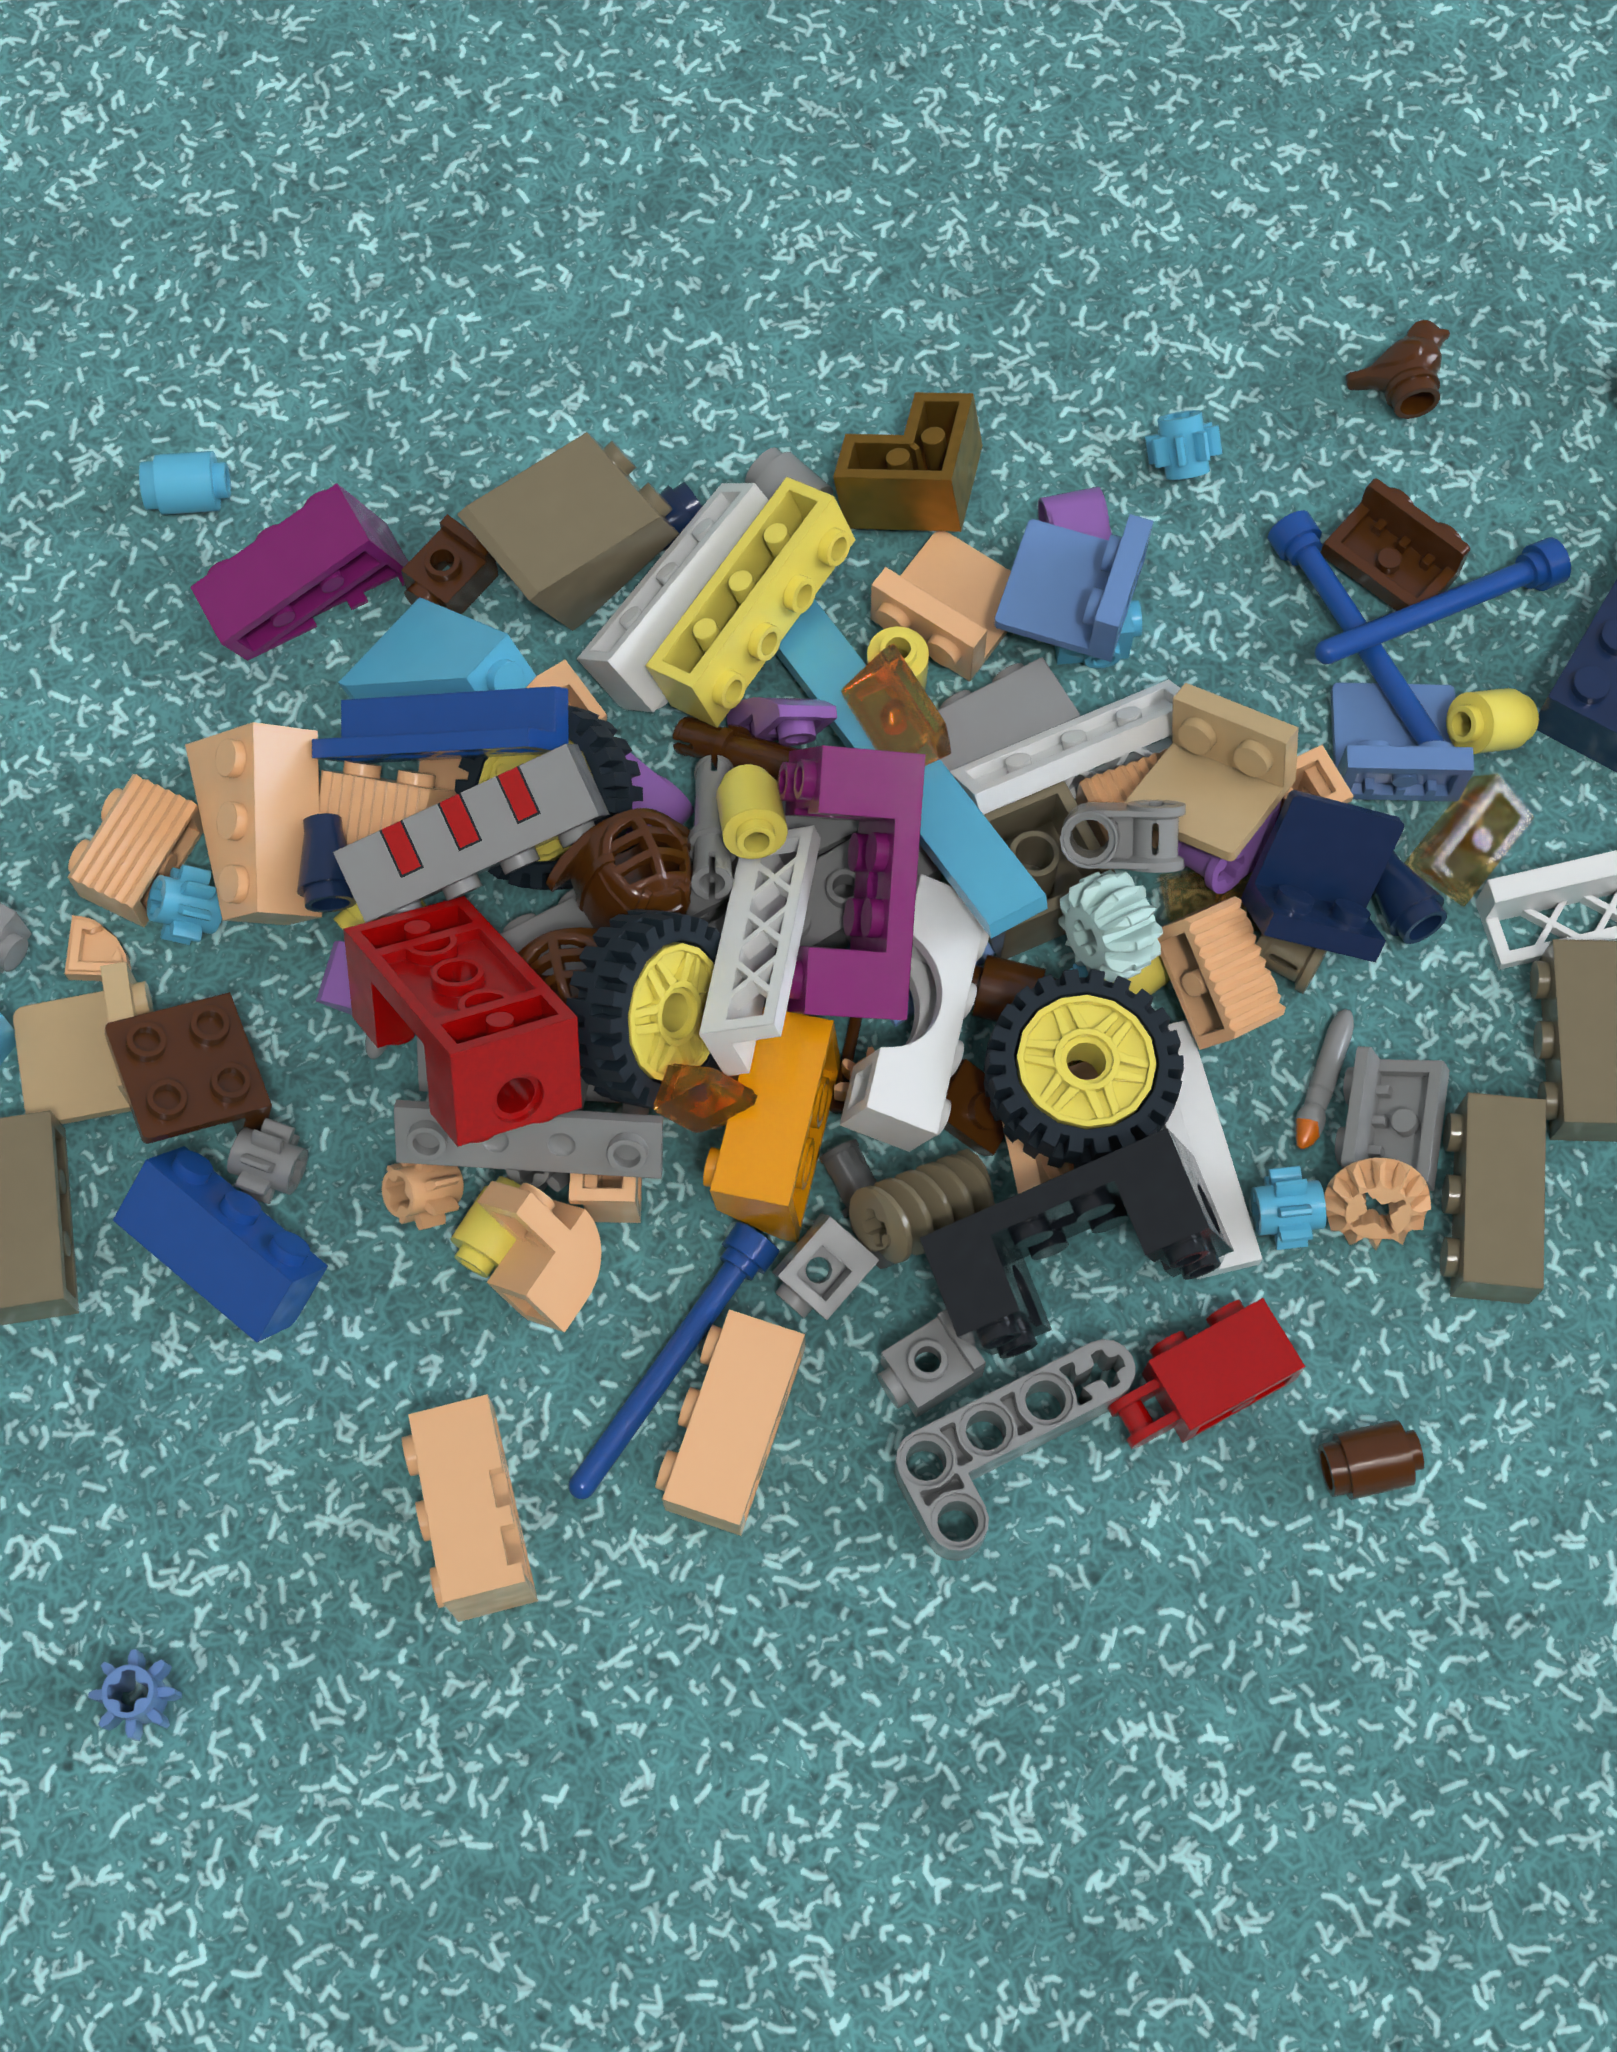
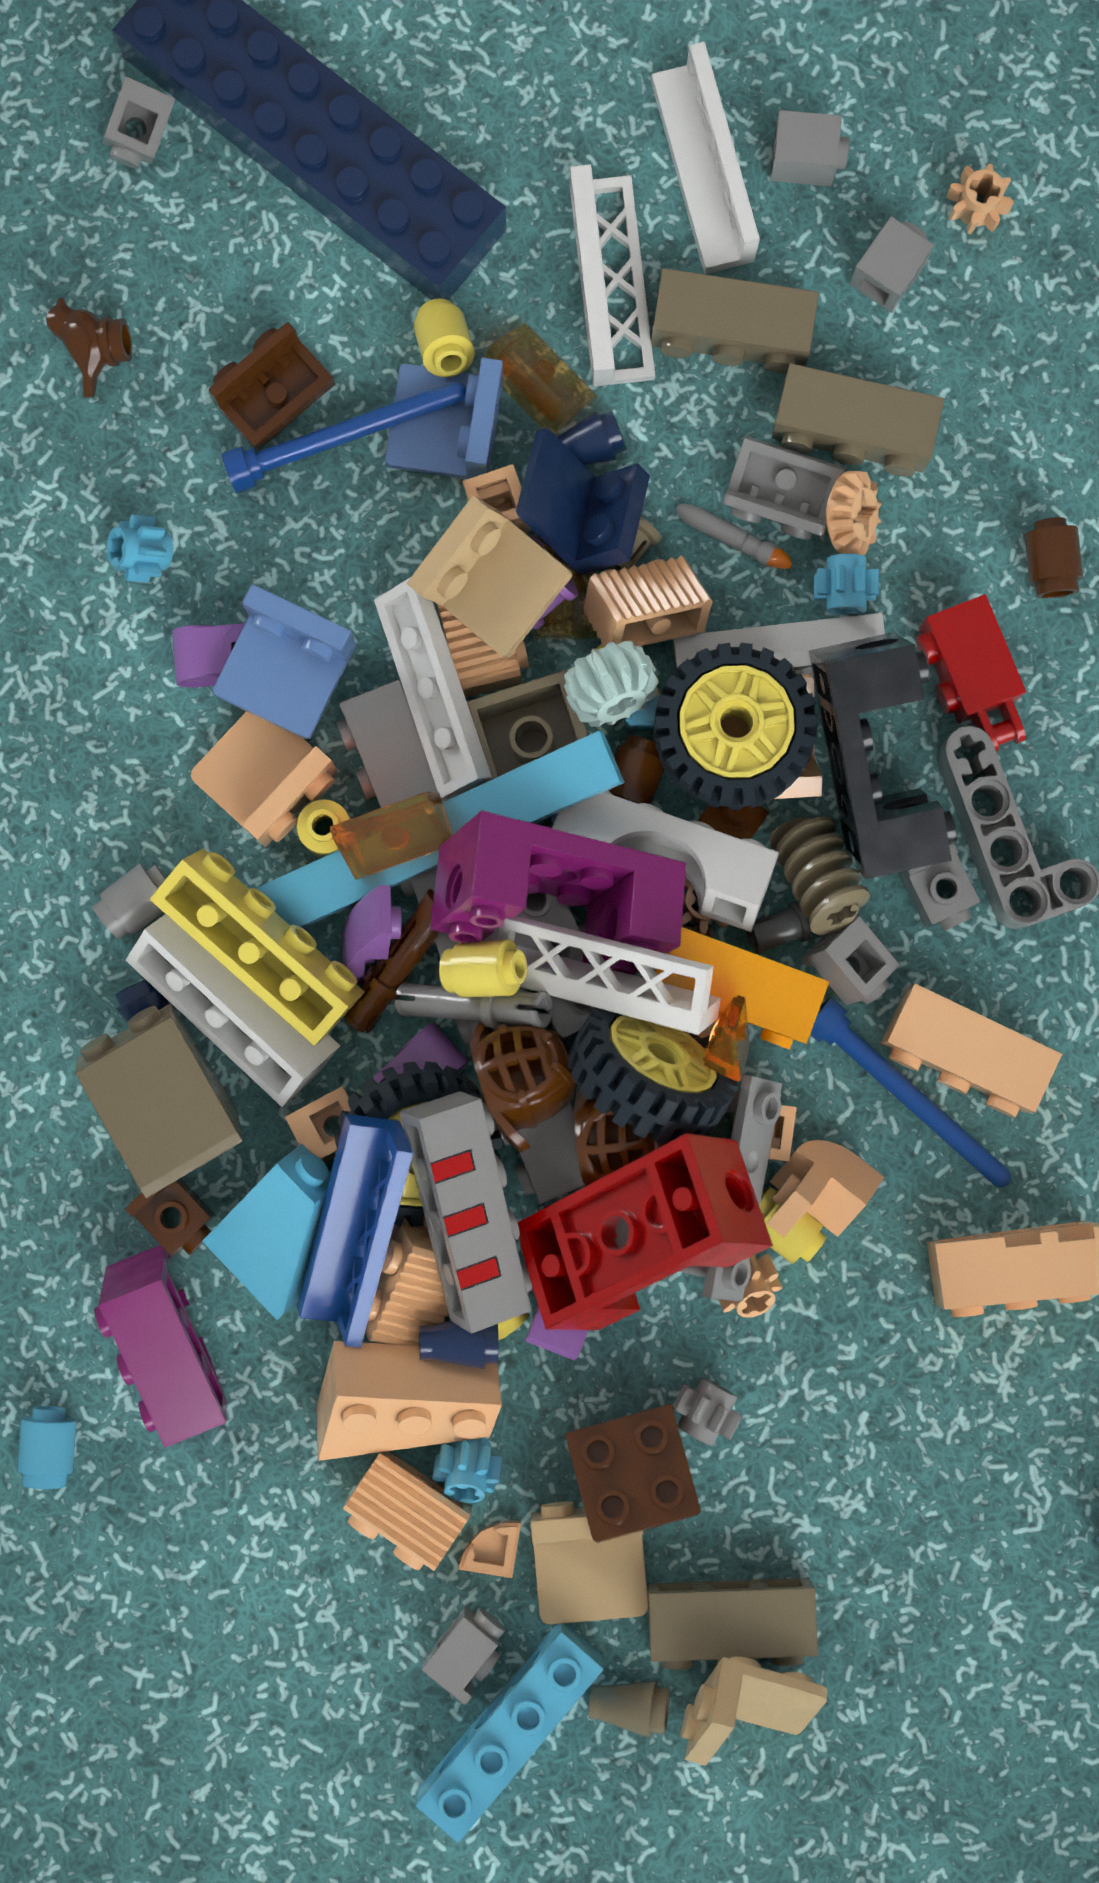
camera: 85 degrees left, 15 degrees up
(220, 1242) = (777, 1455): blue brick -> none
(913, 477) = (146, 783): pearl gold brick -> none
(1129, 836) = (540, 656): light grey piece -> none
(1538, 567) = (300, 269): blue piece -> none

